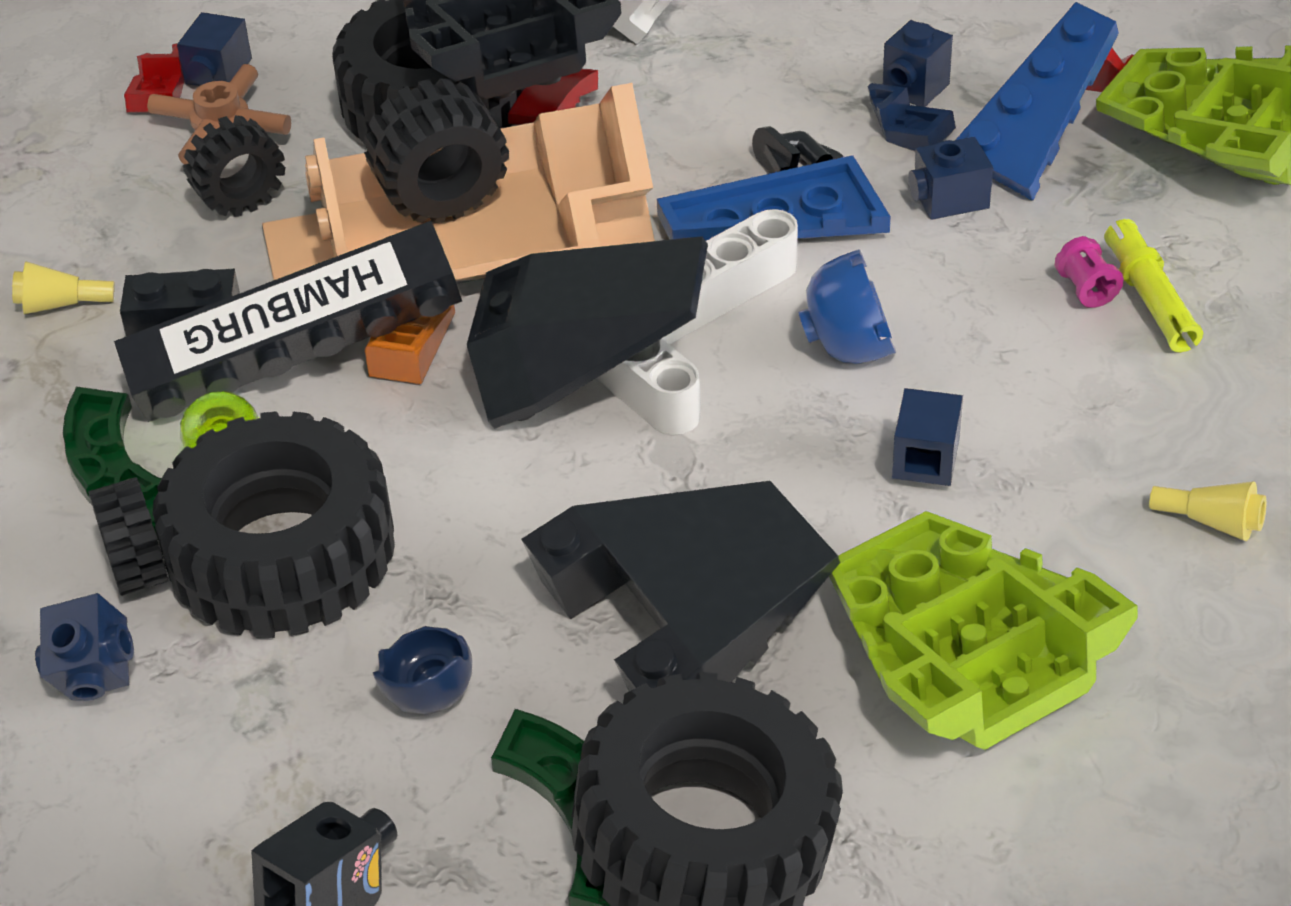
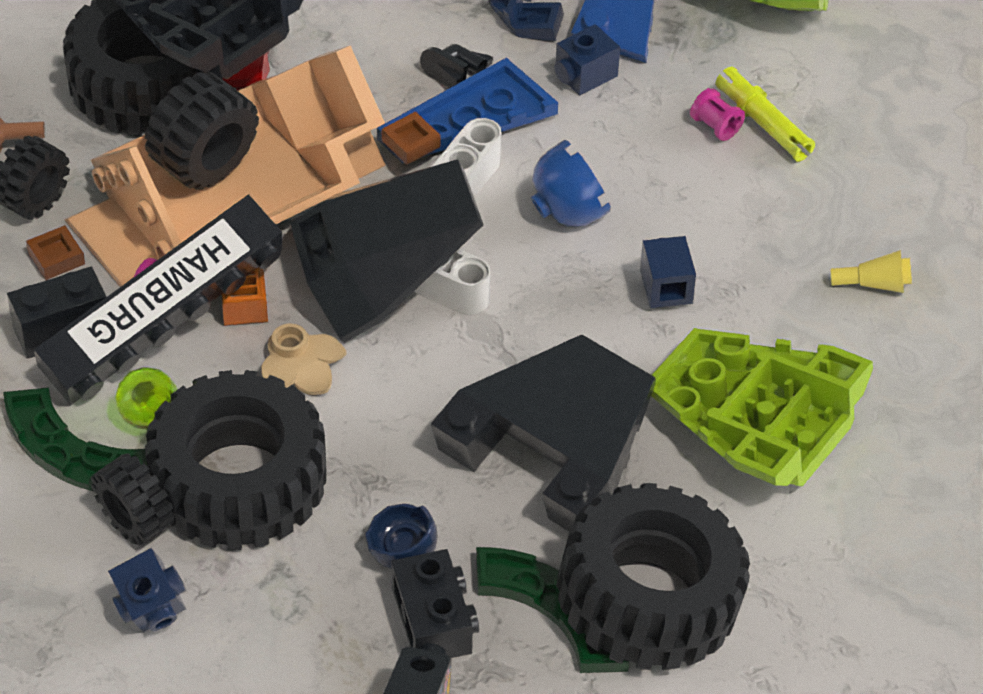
camera: 25 degrees left, 5 degrees up
(228, 251) = (55, 252): none -> dark orange tile
(418, 763) = (433, 602): none -> black brick
(428, 434) = (302, 358): none -> tan plate
(687, 214) = (411, 138): none -> dark orange tile

